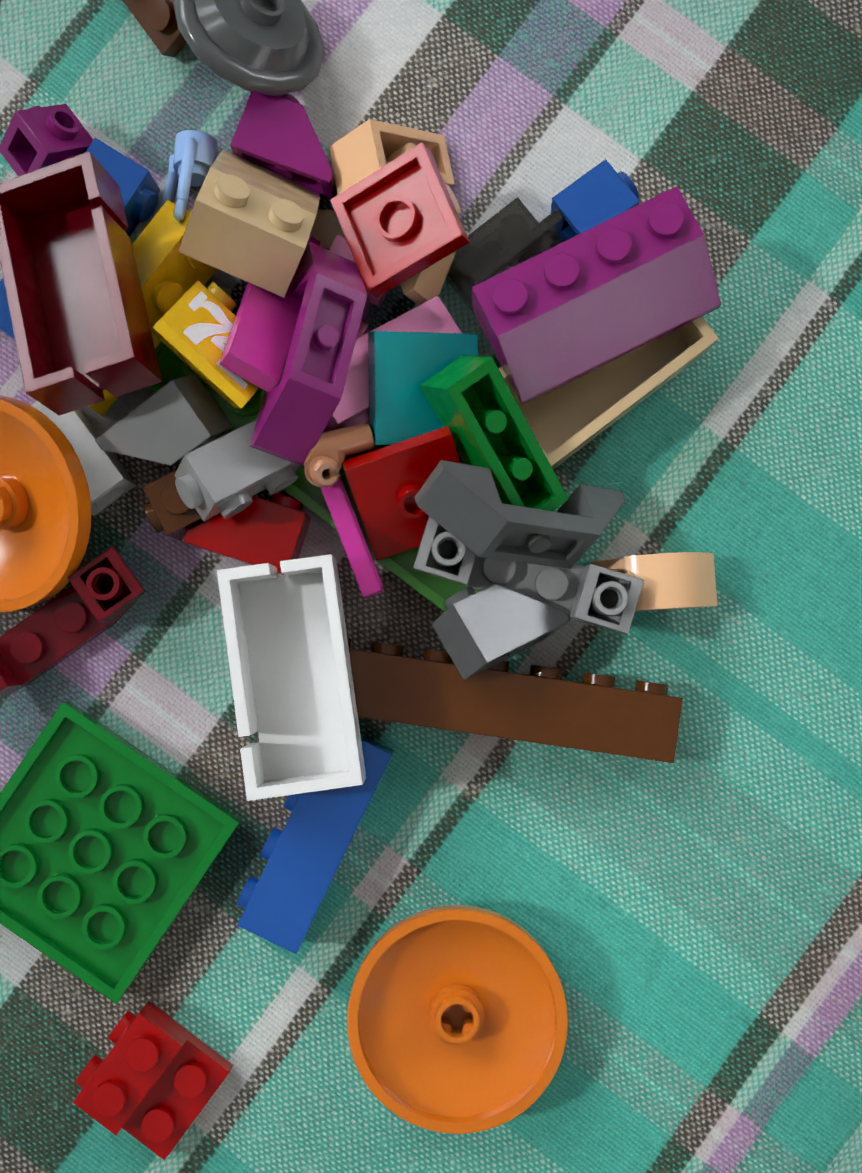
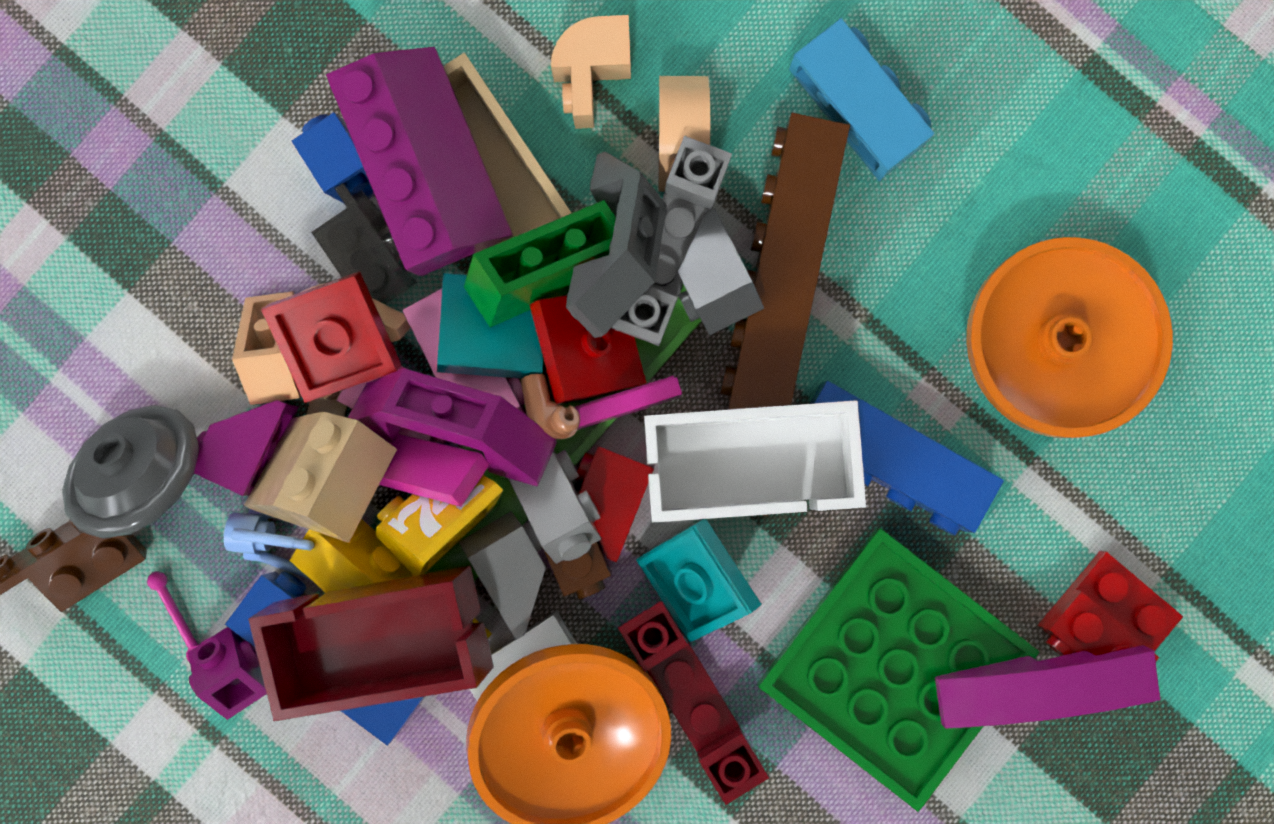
camera: 85 degrees left, 0 degrees up
(72, 1015) = (1048, 688): none -> magenta slope
(140, 70) = (158, 581): none -> dark pink hinge
(168, 630) = (698, 581): none -> teal tile
(706, 775) = (866, 96): none -> dark azure brick
(734, 476) = (586, 53): none -> light nougat brick

